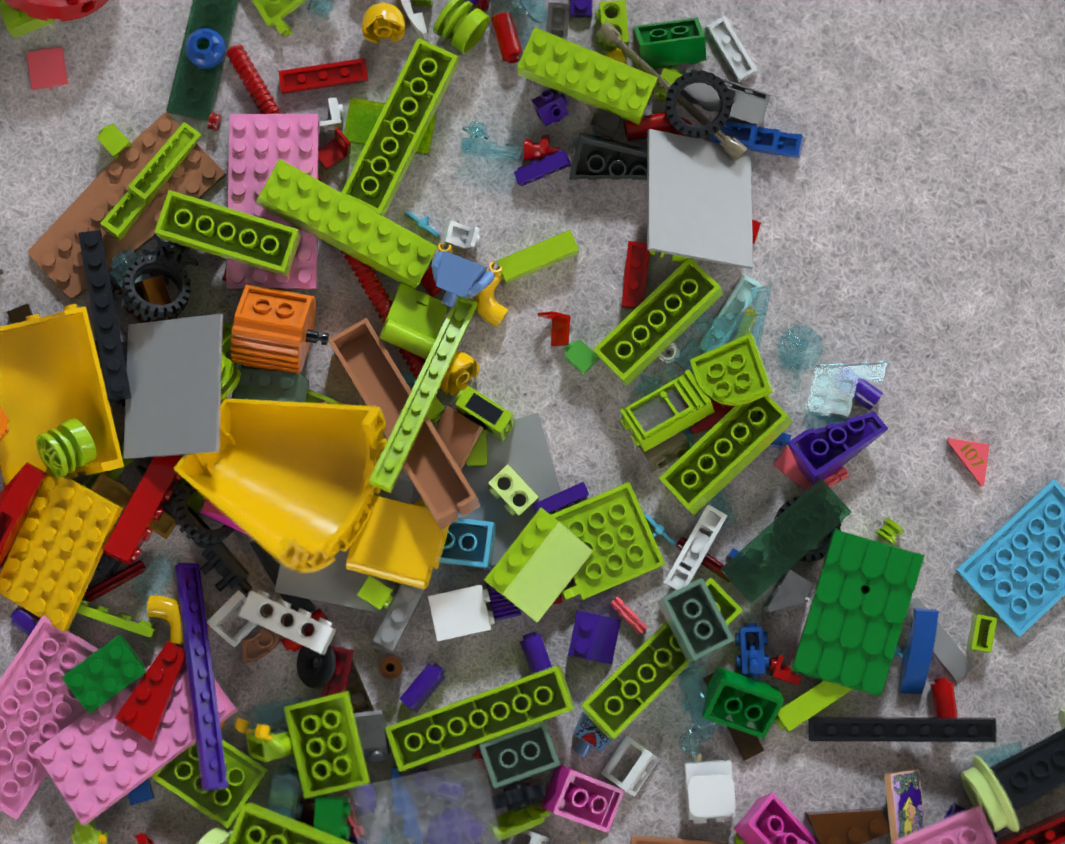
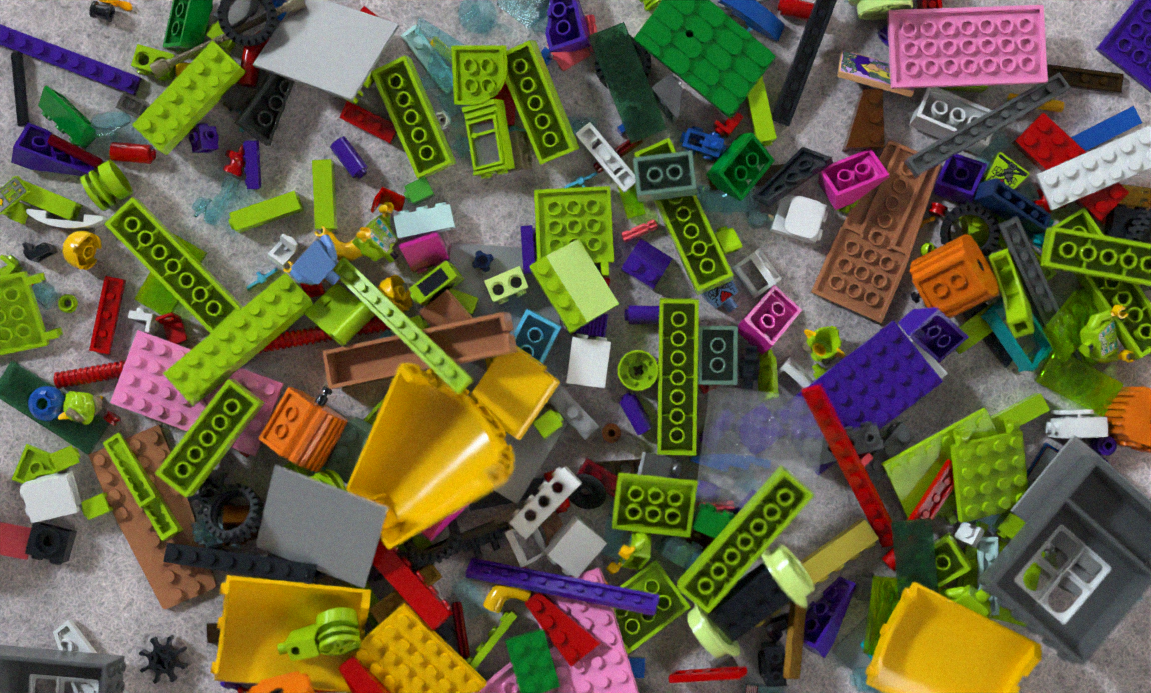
camera: 65 degrees left, 5 degrees up
(39, 413) = (301, 643): none -> lime torso
(49, 98) = (40, 547): none -> black brick
(107, 89) = (51, 496): none -> white brick
(137, 60) = (32, 465): none -> lime tile
(152, 87) = (64, 458): none -> lime brick
(214, 85) = (81, 407): none -> lime hair
(249, 673) = (574, 547): none -> white brick
(320, 24) = (62, 303): none -> lime plate
(465, 659) = (639, 381): none -> lime wheel
(496, 201) = (265, 212): none -> lime brick
(513, 330) = (377, 236): none -> torso
(514, 389) = (424, 252): none -> dark pink slope
(525, 459) = (482, 256): none -> dark blue plate
(550, 375) = (424, 221): none -> light aqua brick
(588, 268) = (349, 157): none -> dark purple brick
(650, 596) = (630, 203): none -> clear neon green plate
(653, 717) = (728, 240): none -> lime slope
(757, 766) = (791, 175): none -> black wing

